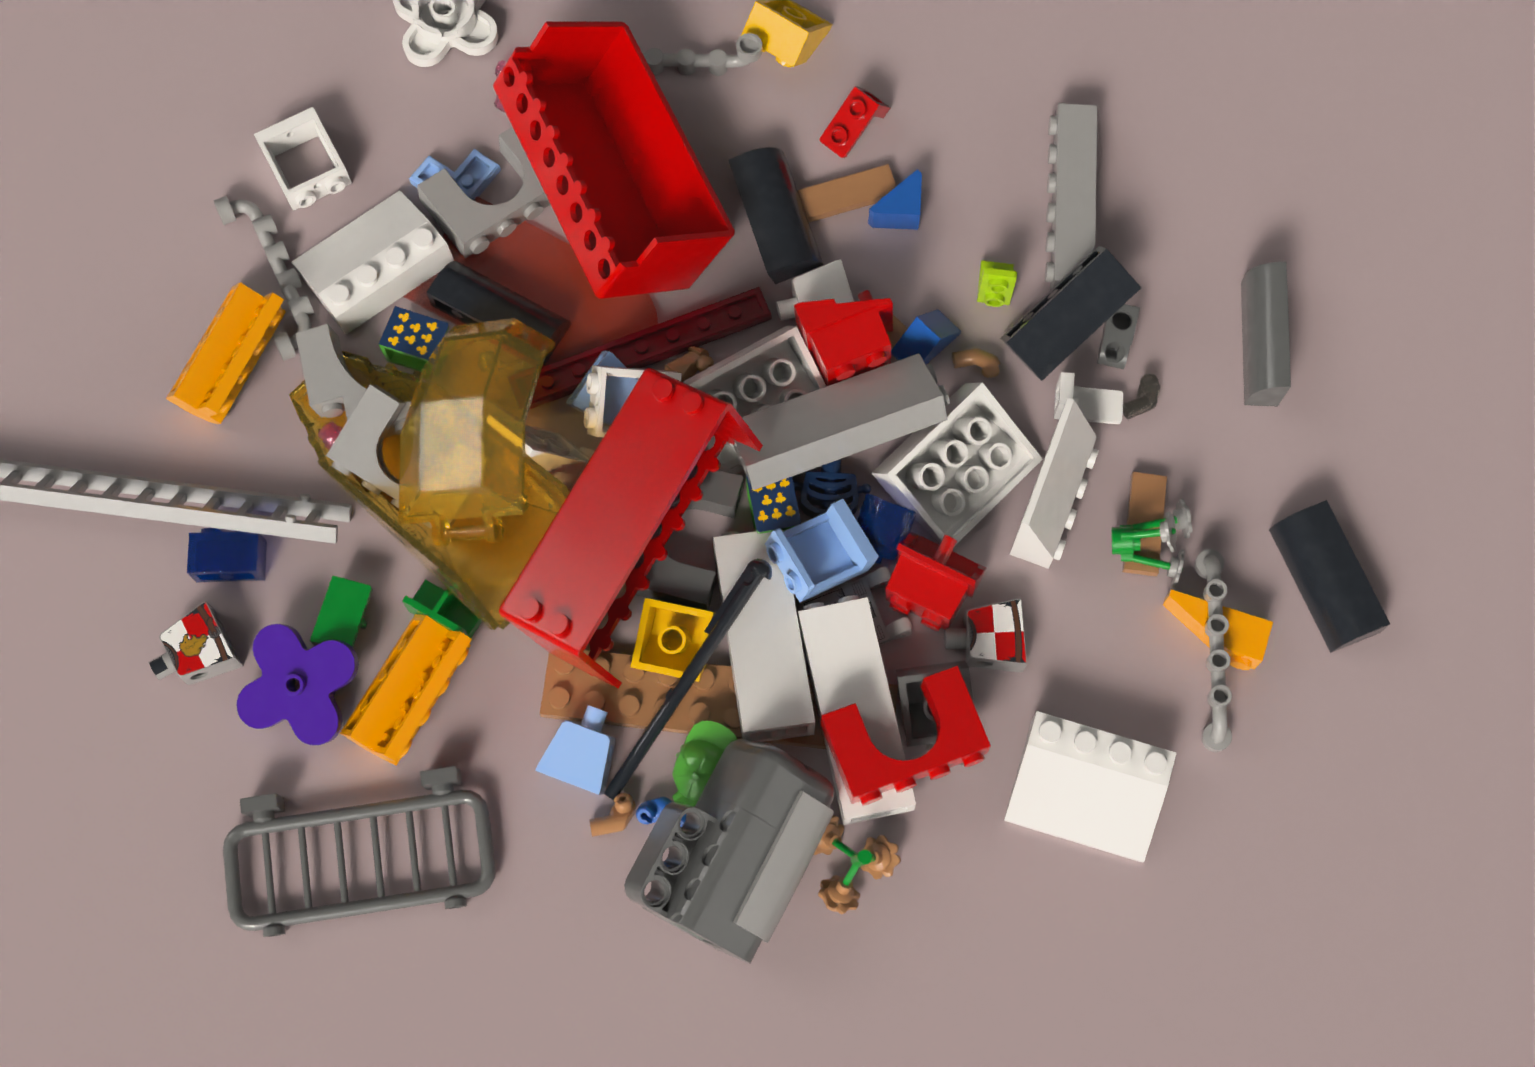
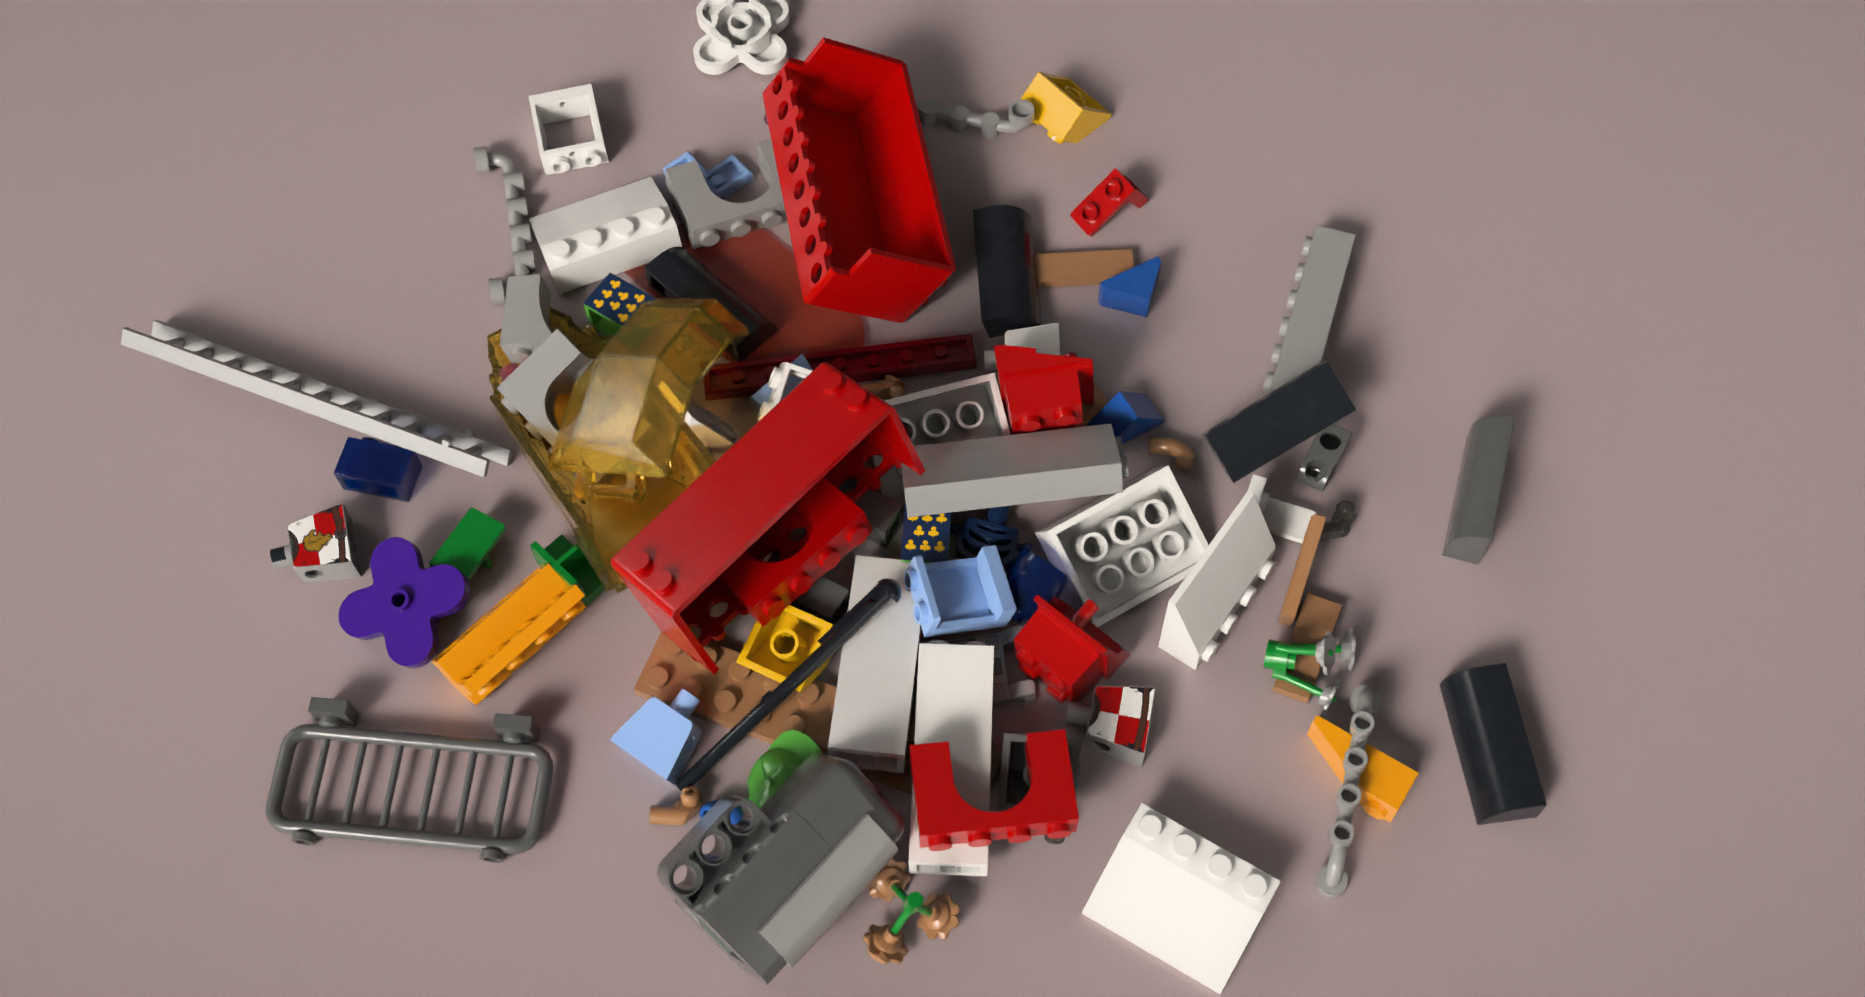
camera: 15 degrees right, 10 degrees down
(227, 353) = (440, 285): light orange brick -> none
(648, 591) = (770, 587): none -> red arch
(996, 283) = (1210, 381): lime bracket -> none
(1124, 453) = (1301, 570): none -> medium nougat tile

